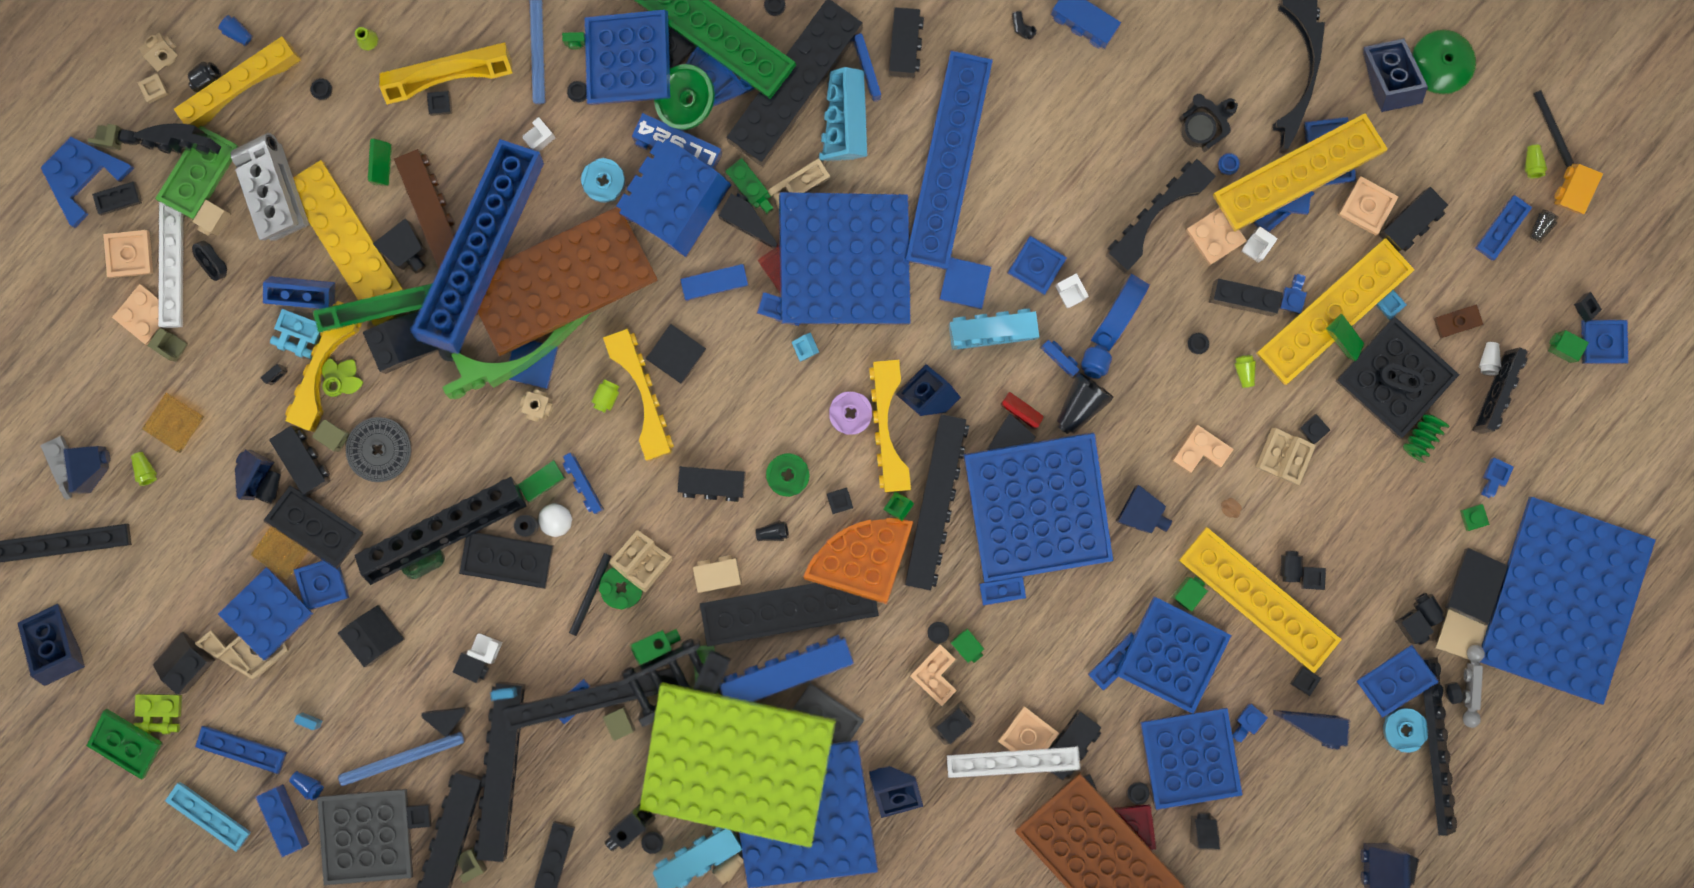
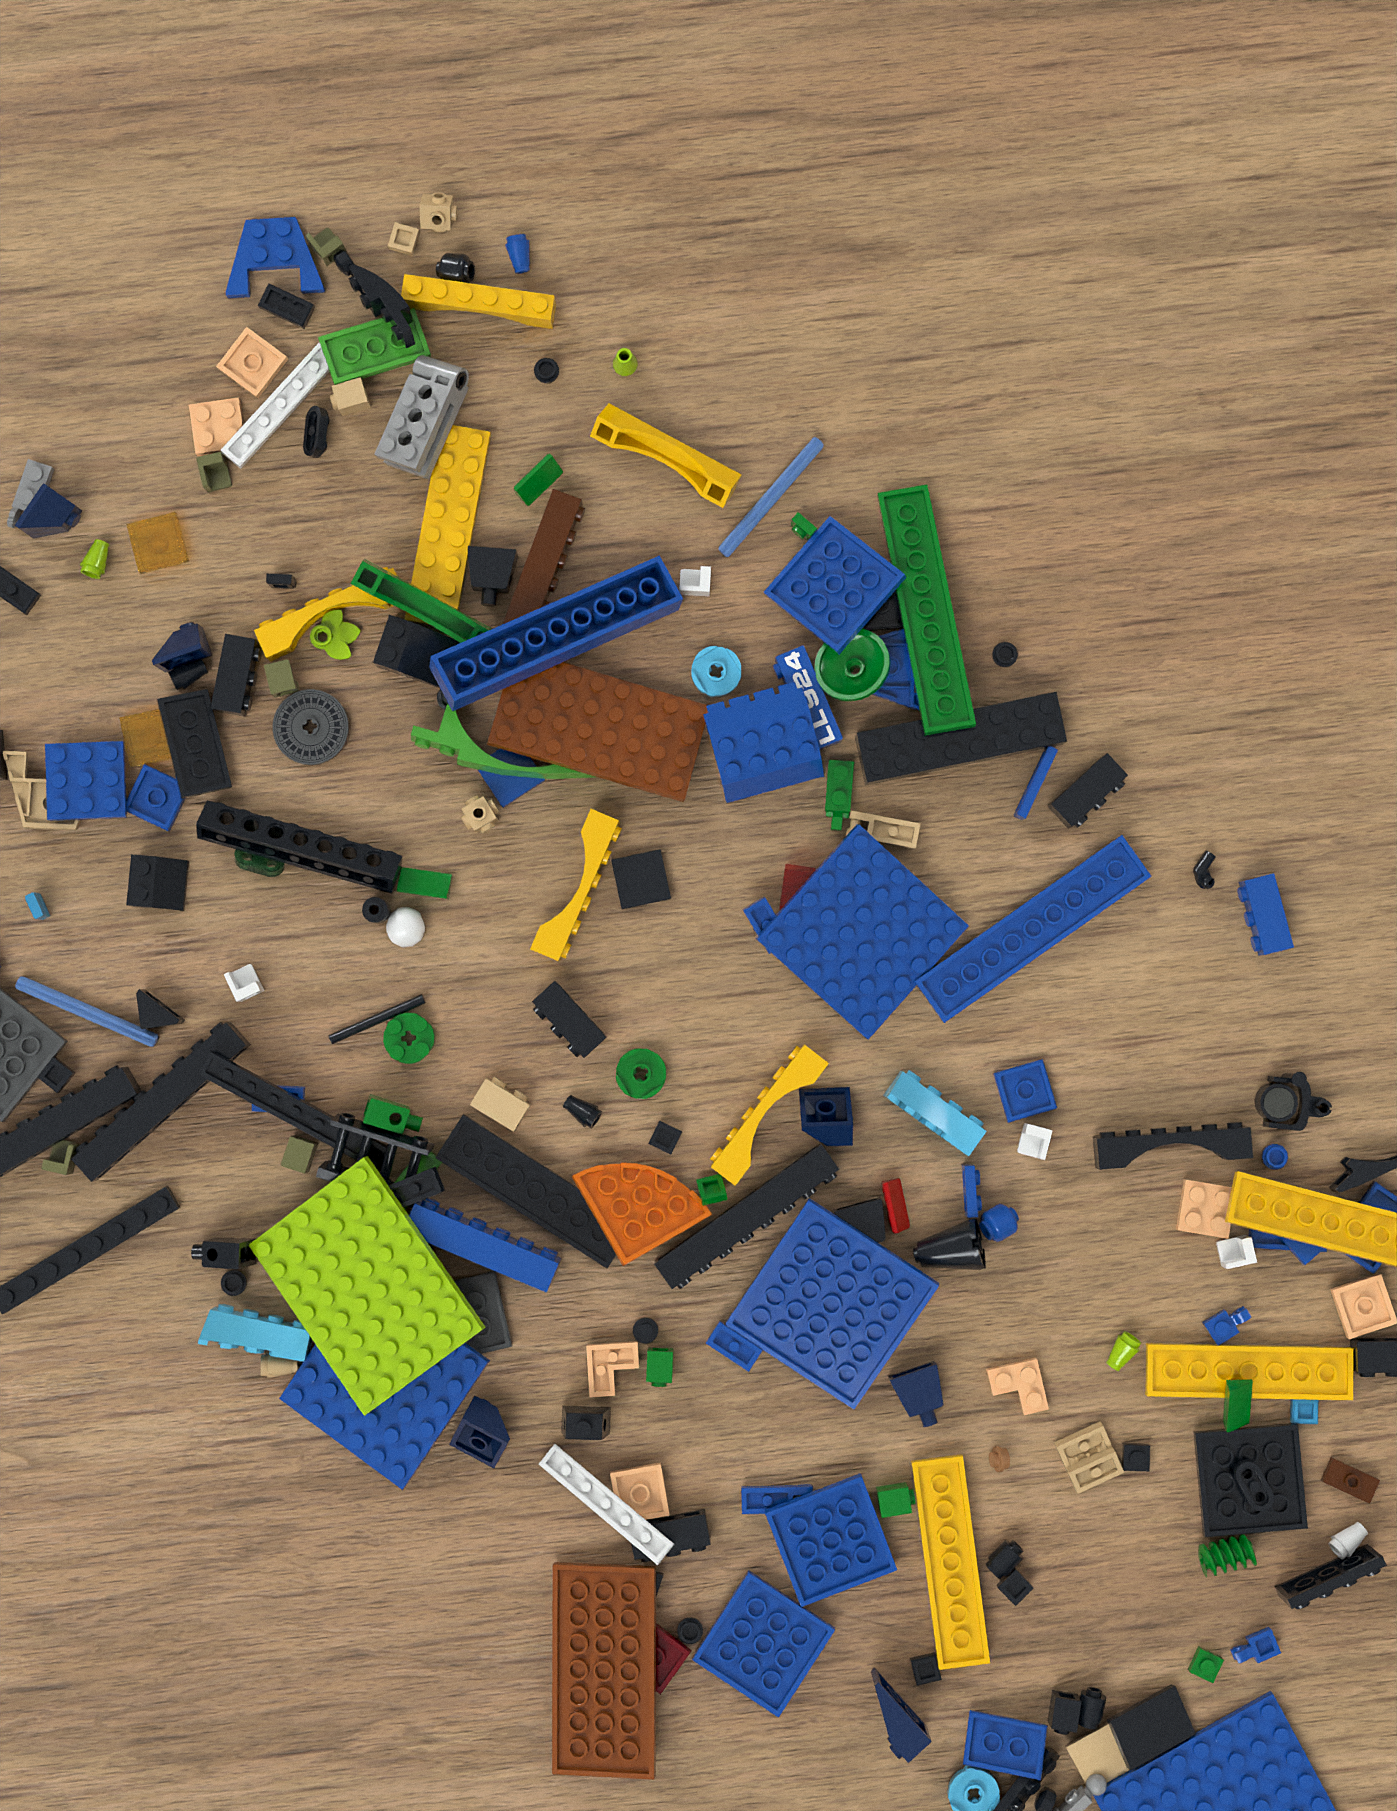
camera: 45 degrees right, 0 degrees up
(296, 326) = (339, 559): medium azure plate -> none
(298, 292) = (366, 530): blue brick -> none
(439, 103) = (636, 475): black plate -> none
(471, 668) = (216, 989): black brick -> none
(503, 693) = (224, 1038): dark azure tile -> none
(506, 560) = (332, 923): black tile -> none
(577, 91) = (764, 574): black plate -> none
(582, 484) = (457, 918): blue plate -> none
(605, 396) = (546, 860): lime brick -> none
(640, 561) = (446, 1031): tan slope -> none
(714, 282) = (731, 847): blue tile -> none
(743, 217) = (808, 817): black slope -> none
(805, 347) = (758, 976): medium azure plate -> none
(838, 410) = (753, 1081): lavender plate -> none
(845, 117) = (976, 808): medium azure wedge -> none
(965, 283) = (948, 1049): blue tile -> none
(1121, 312) = (1060, 1200): blue arch -> none
(1198, 343) = (1103, 1288): black plate -> none
(1204, 832) = (716, 1719): black slope -> none
(1245, 297) = (1181, 1287): black brick -> none
(1250, 721) = (845, 1659): blue plate -> none

